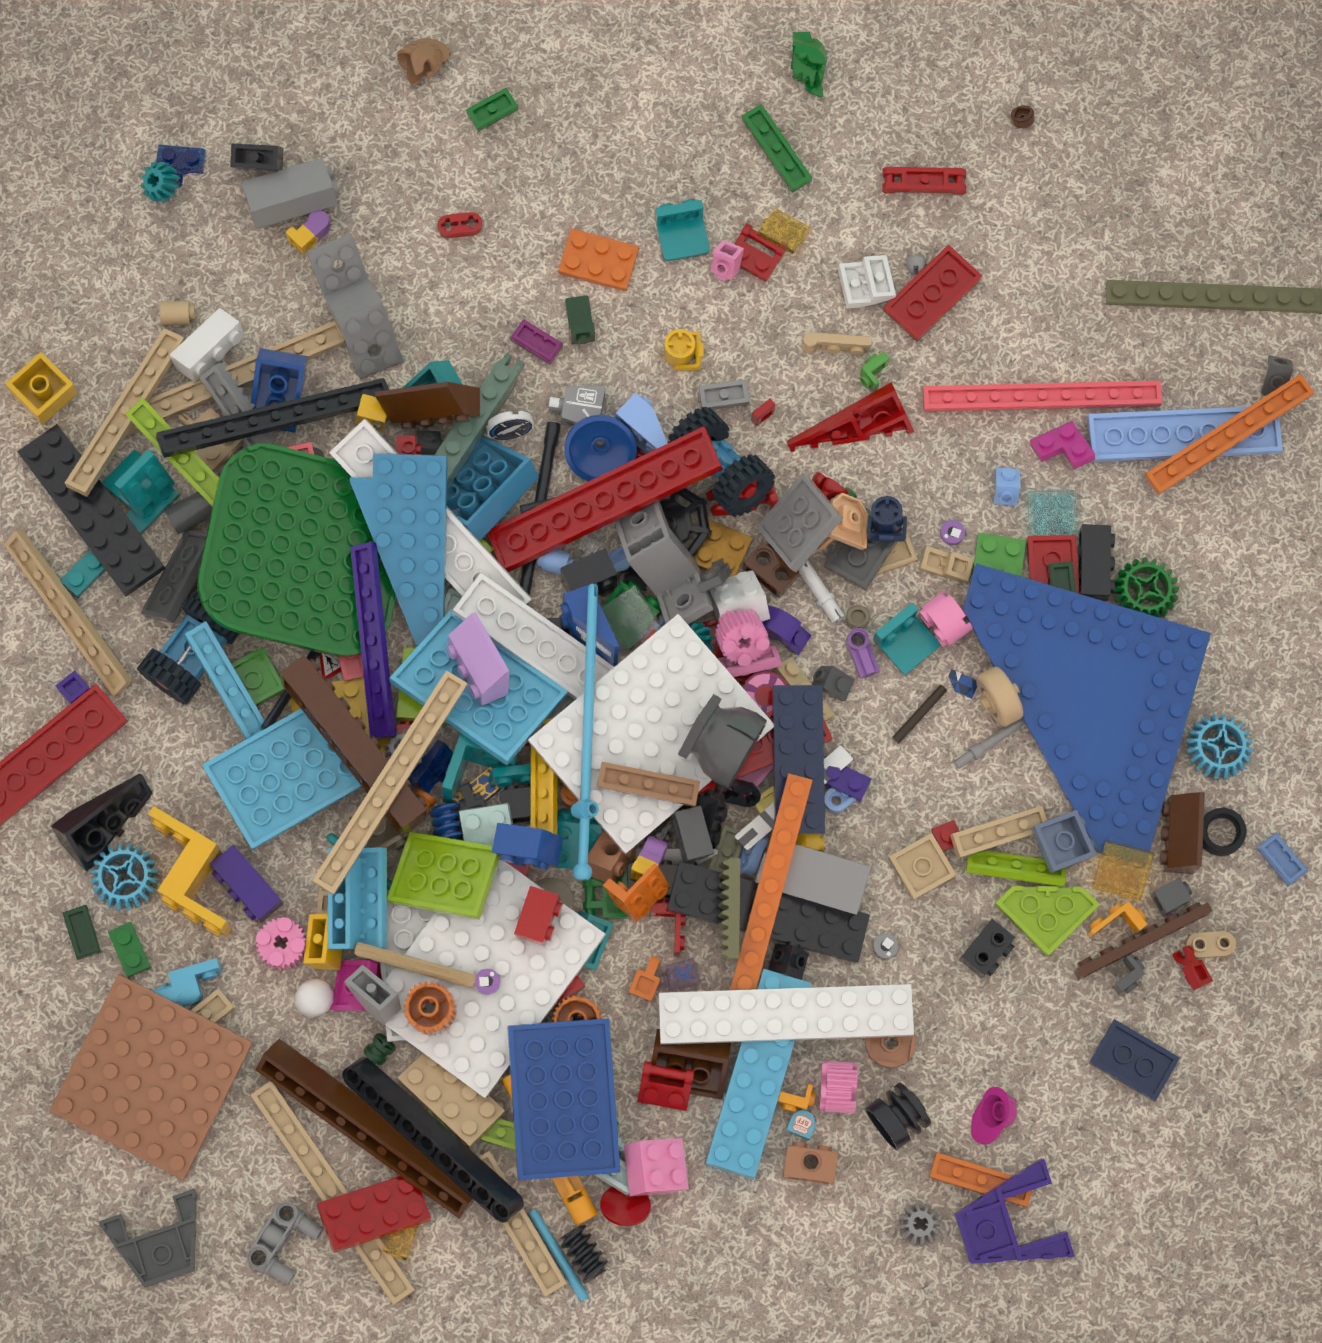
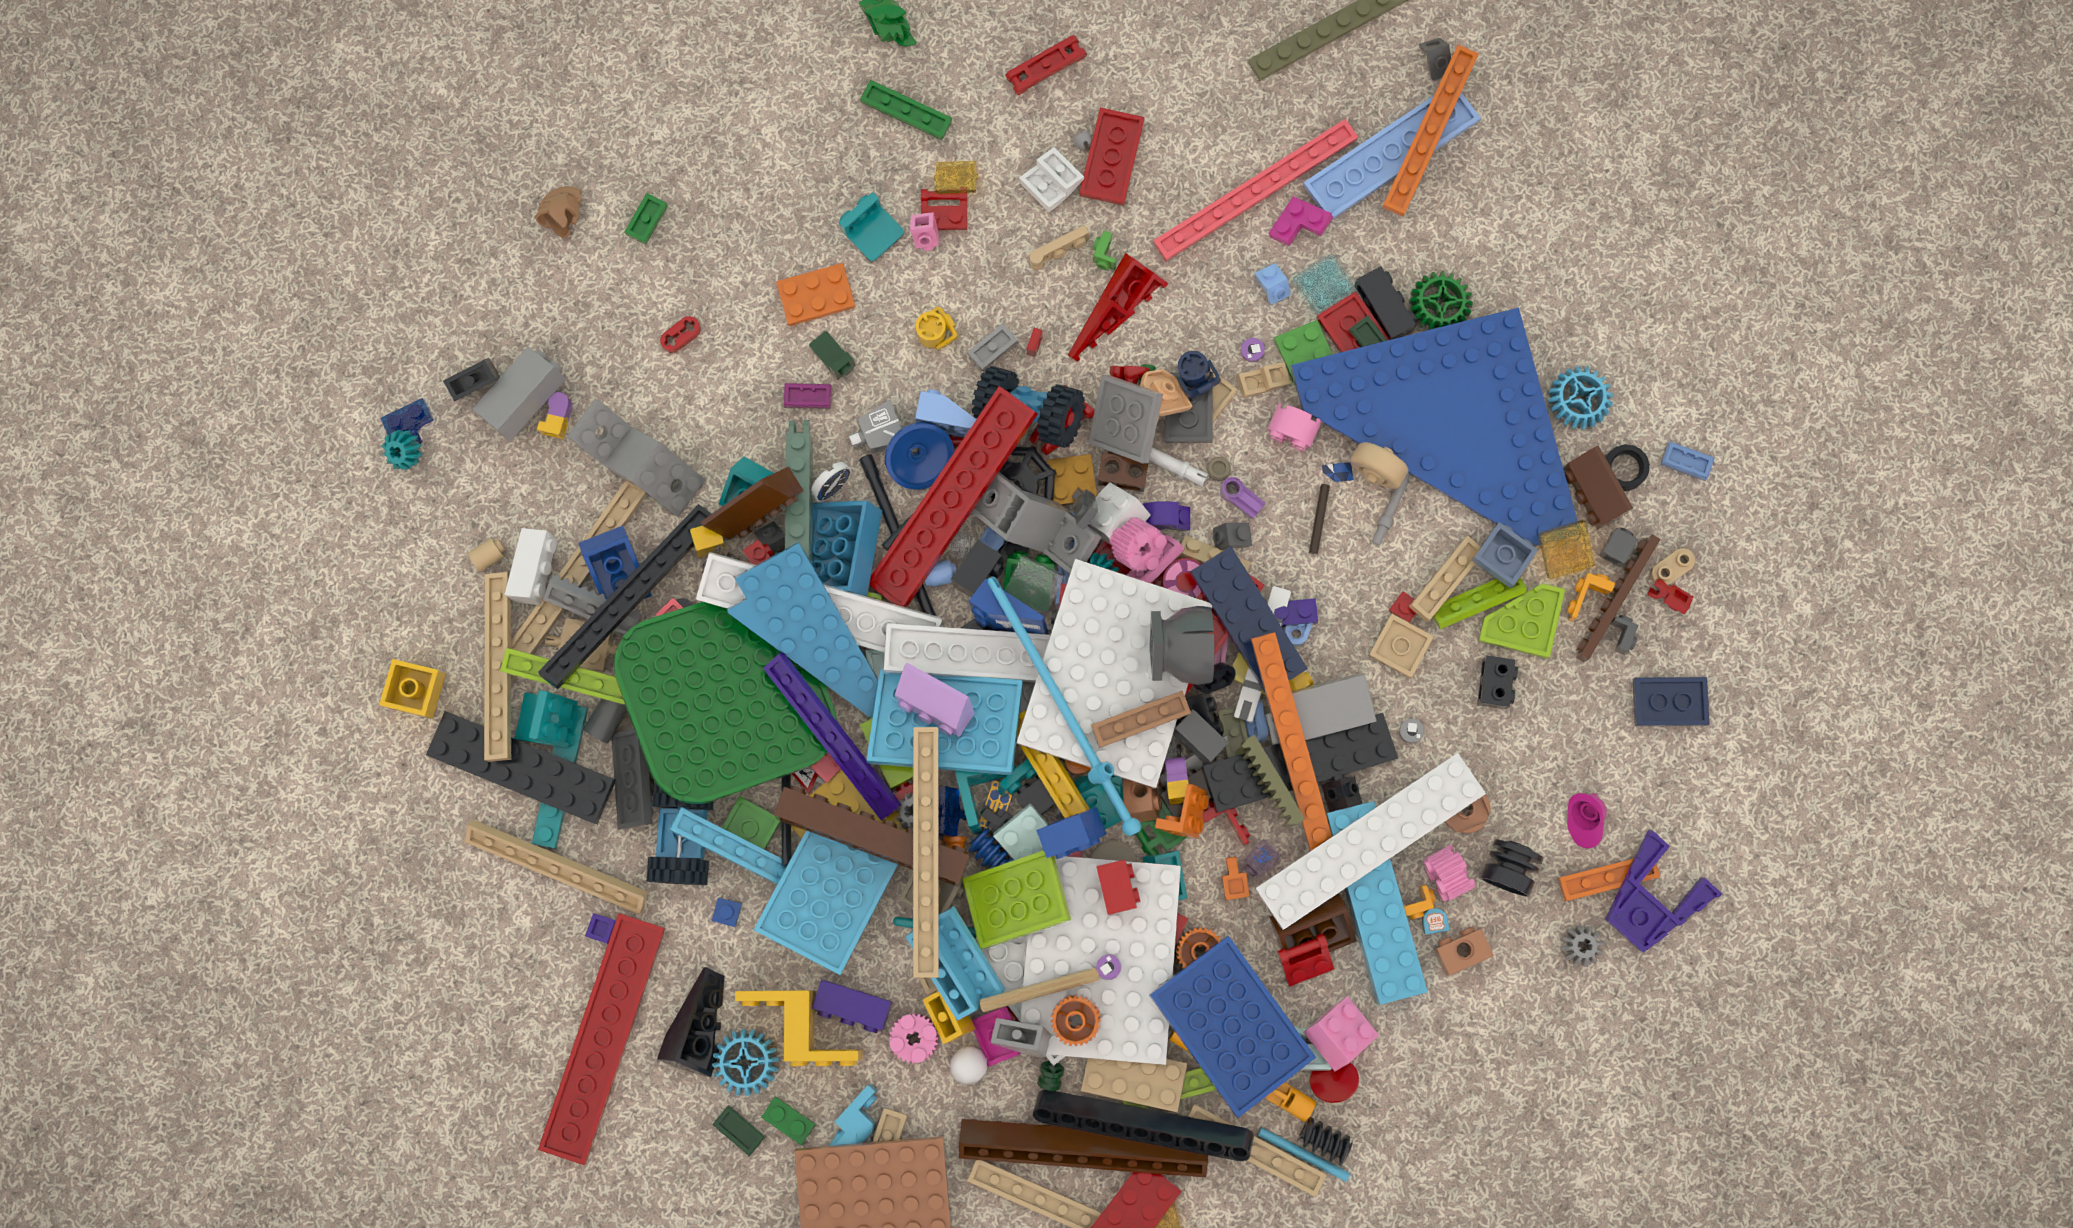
camera: 20 degrees left, 5 degrees up
(189, 740) = (726, 912): none -> blue plate
(906, 640) = (1272, 464): teal bracket -> none

